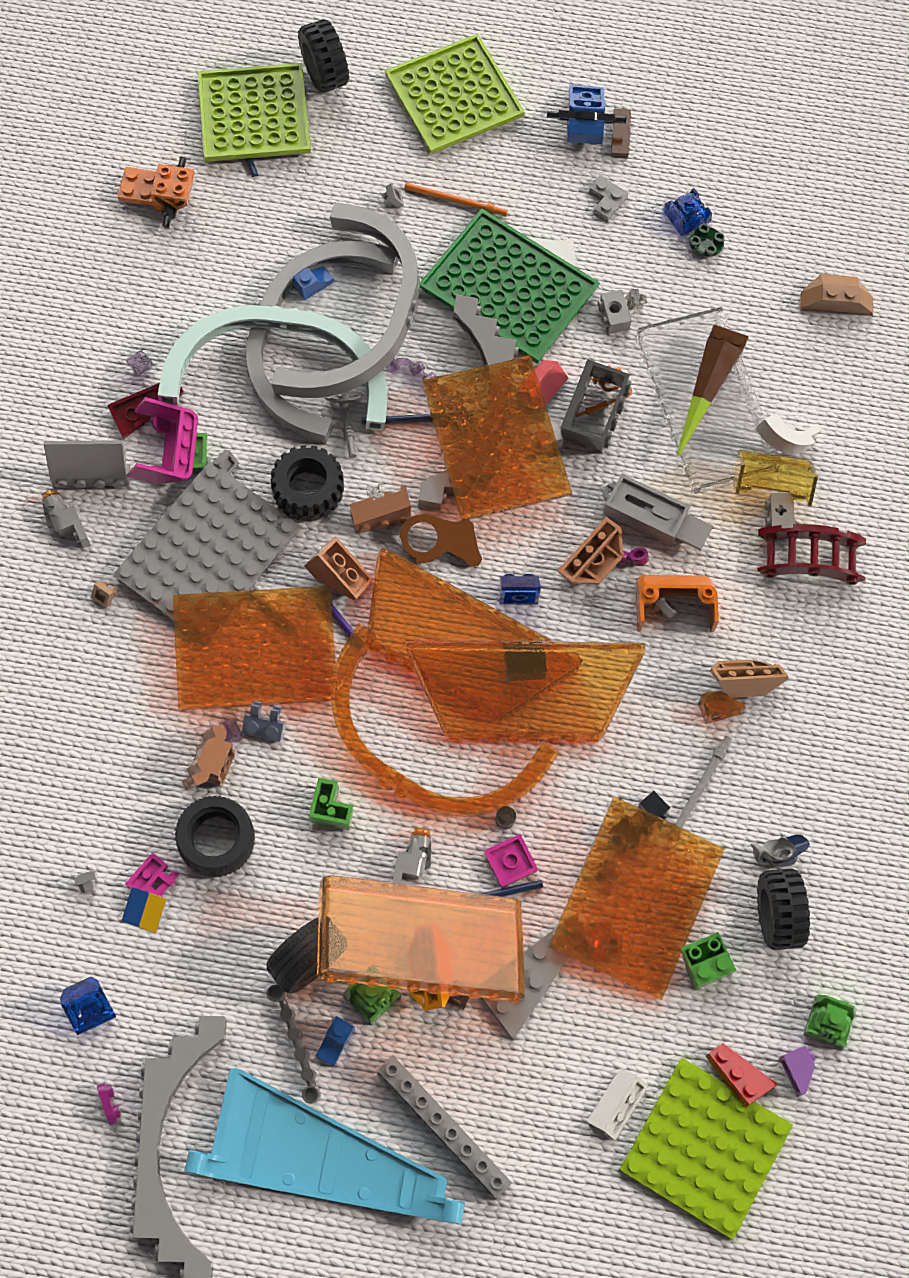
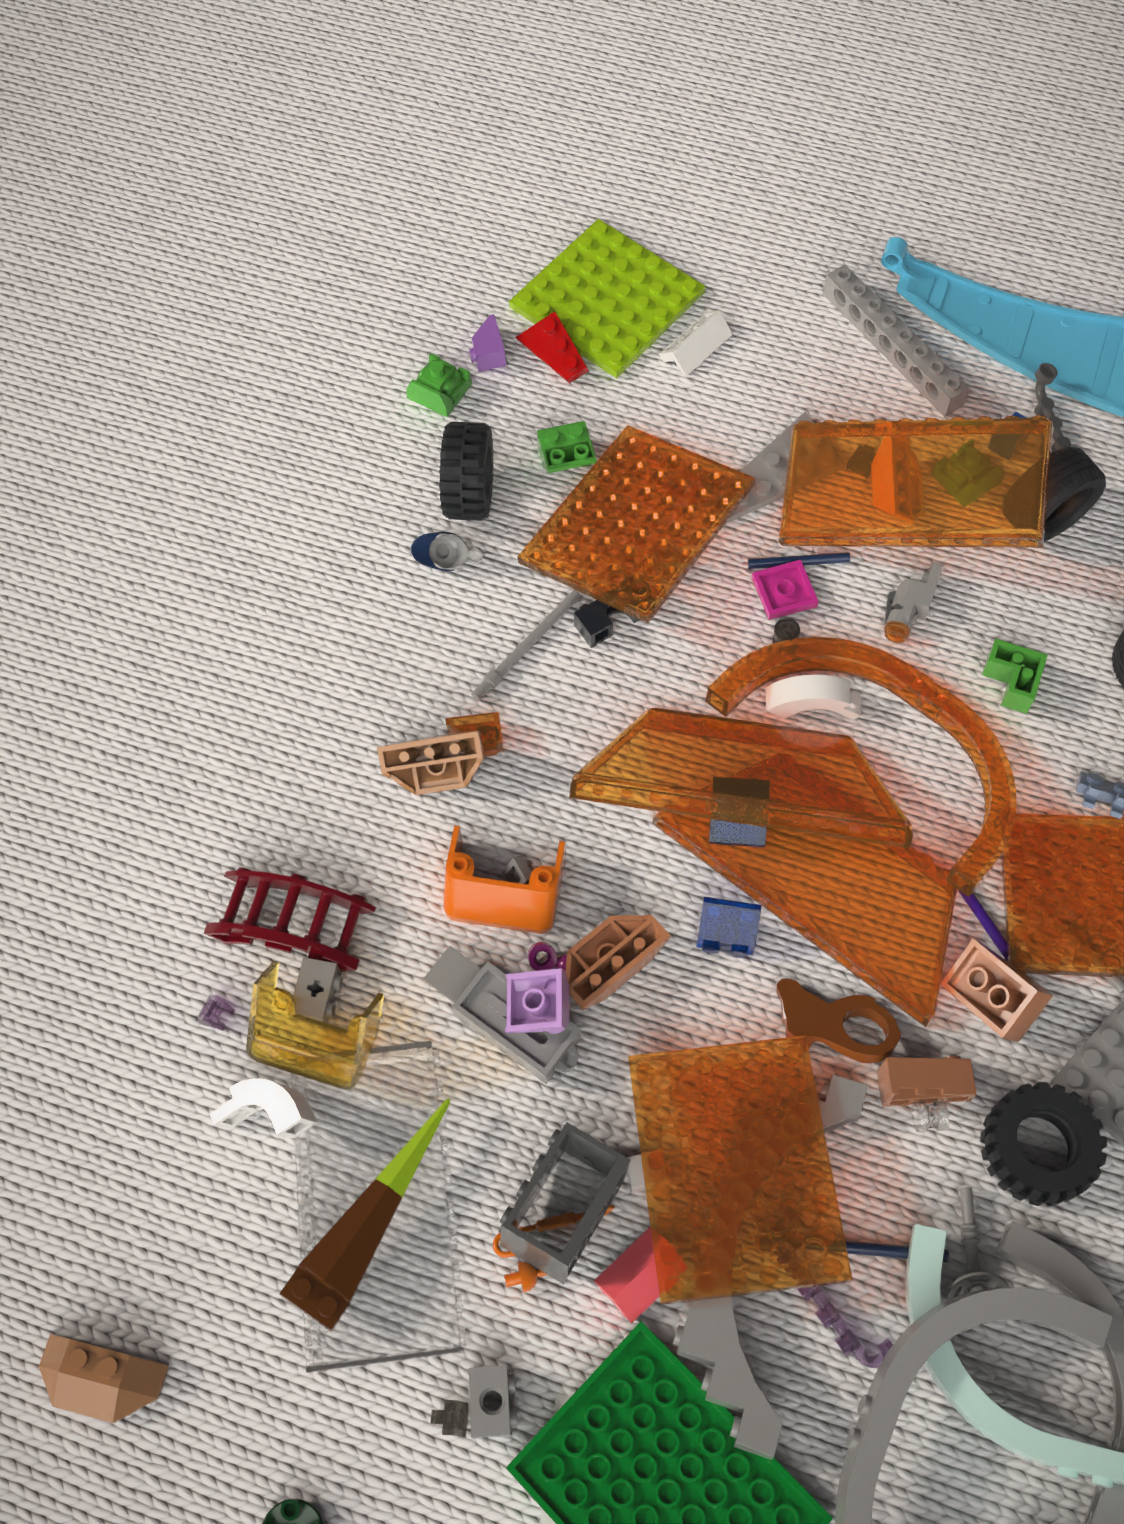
camera: 165 degrees left, 5 degrees down
(479, 763) = (812, 692): none -> white arch
(635, 508) = (537, 1001): none -> lavender slope
(843, 493) = (211, 1010): none -> clear purple tile

